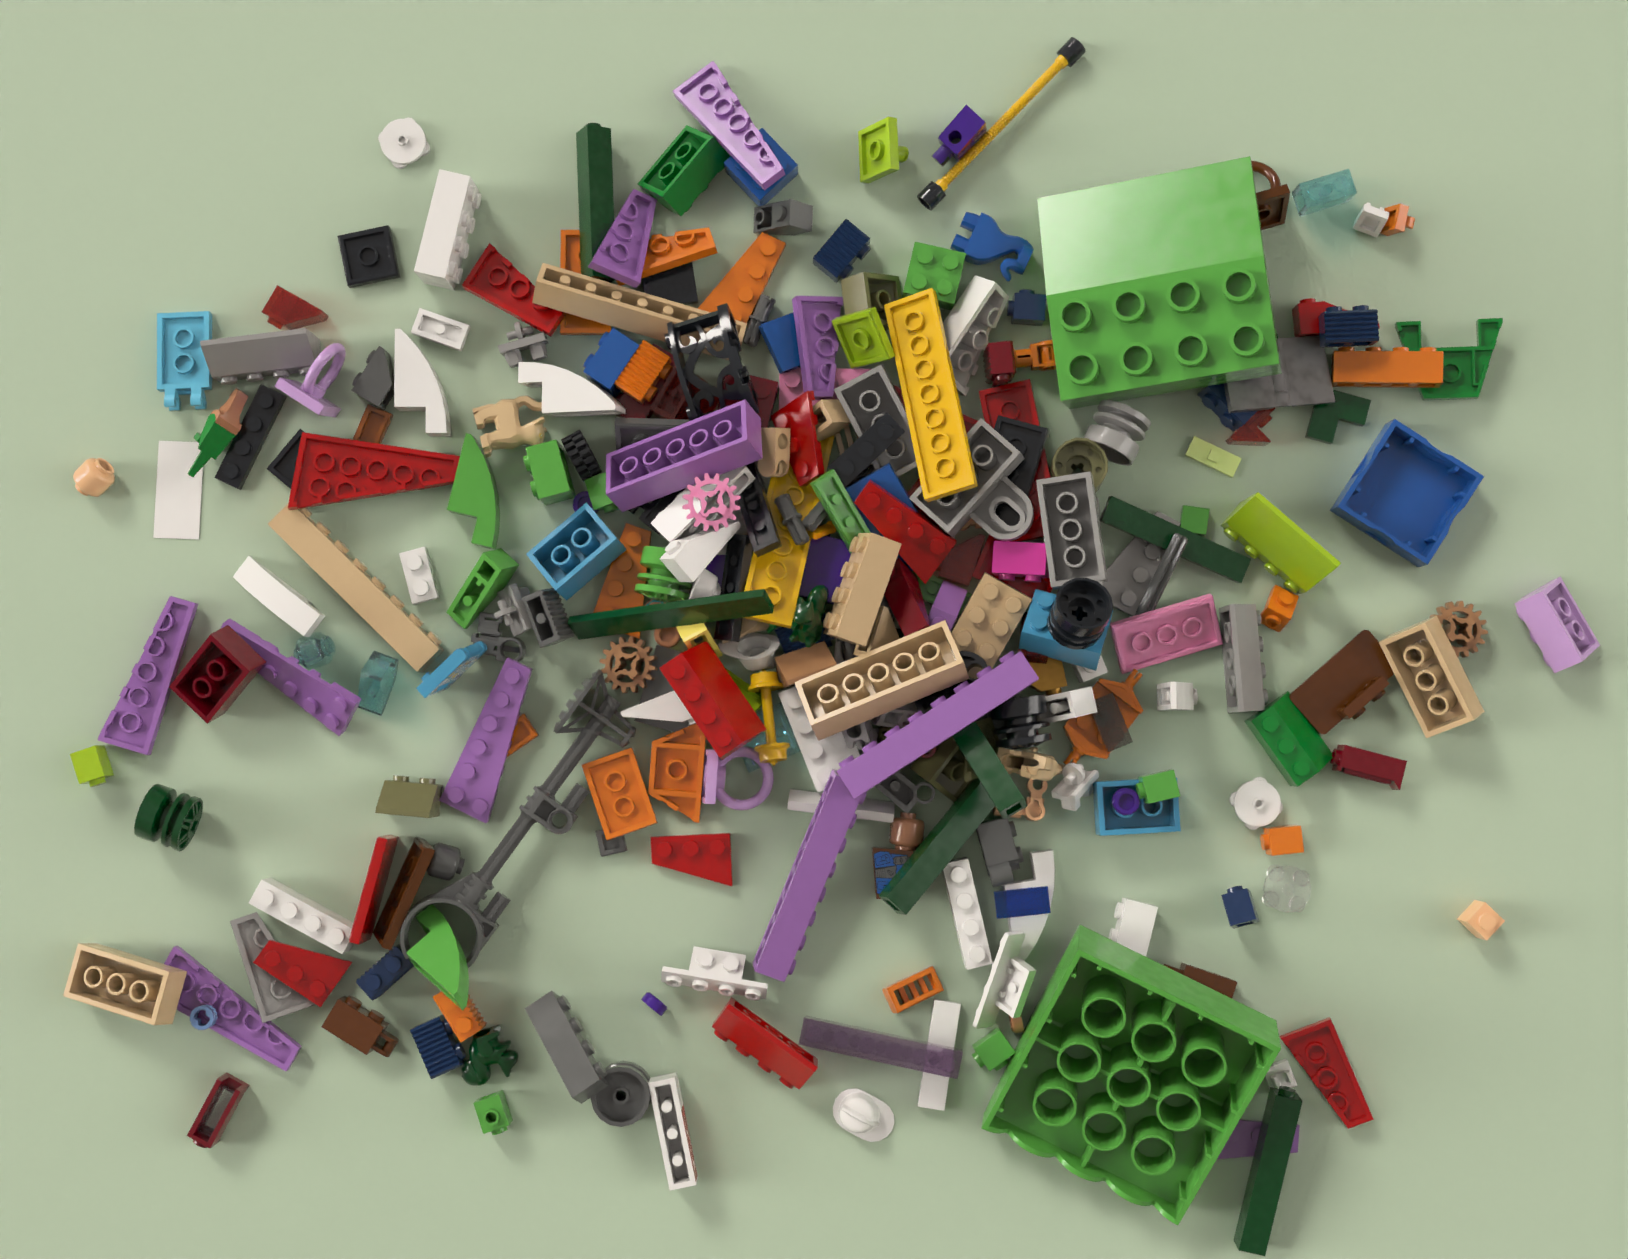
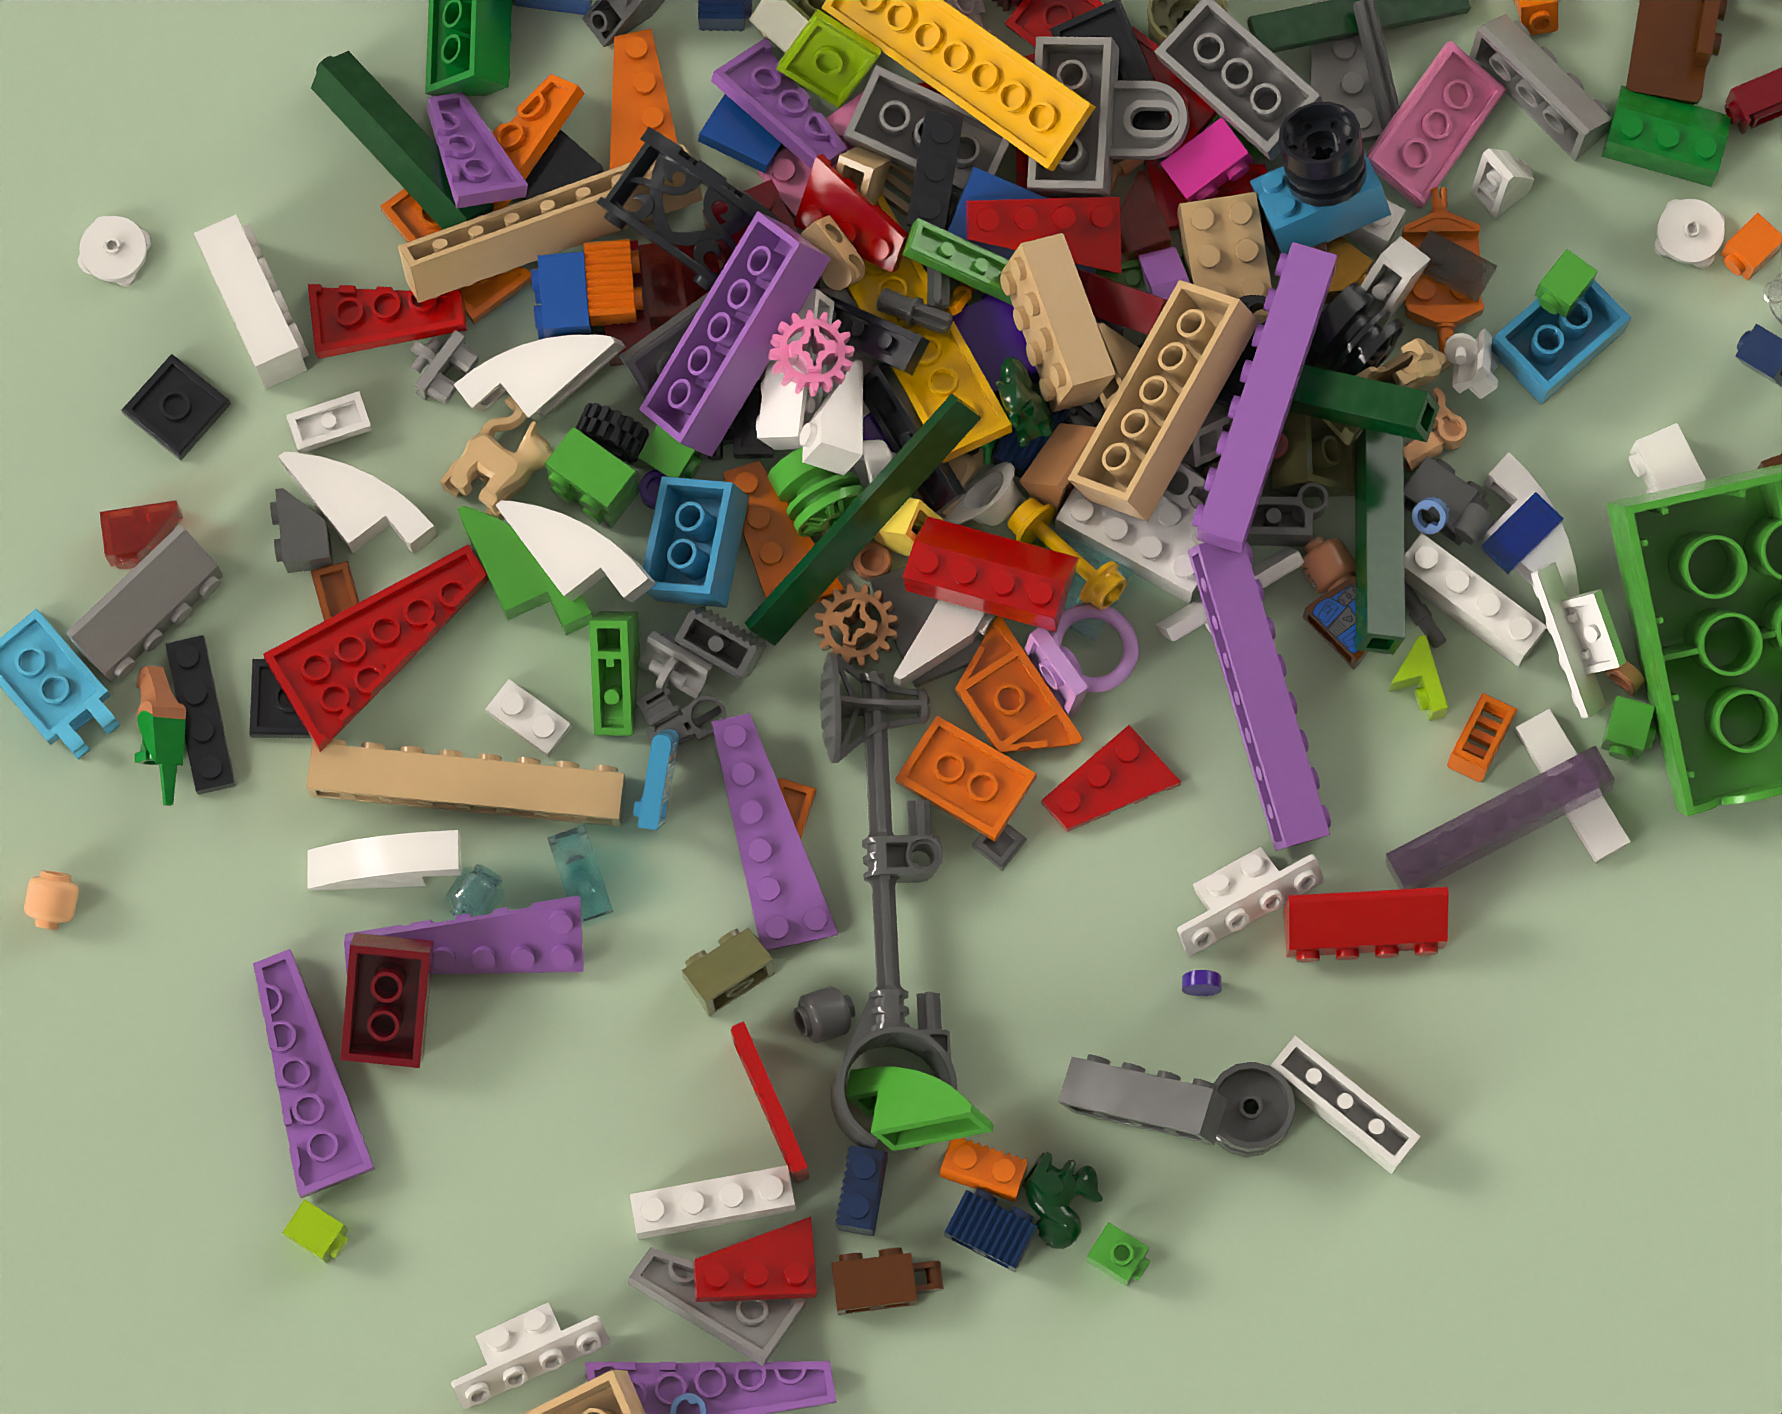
camera: 40 degrees left, 10 degrees down
(150, 912) = (525, 1350): none -> white bracket
(168, 817) = (461, 1212): dark green wheel -> none
(177, 492) = (161, 842): white sticker -> none
(312, 394) = (238, 599): lavender tile -> none
(403, 892) = (808, 1080): reddish brown tile -> none
(504, 508) = (574, 552): none -> white slope
(759, 317) = (688, 128): dark grey axle -> none
(863, 1115) = (1544, 922): white piece -> none
(908, 926) = (1421, 671): none -> lime slope
(934, 899) = (1423, 618): none -> dark grey piece
(982, 845) = (1426, 504): none -> medium blue bush
(1125, 801) = (1543, 330): dark purple tile -> none

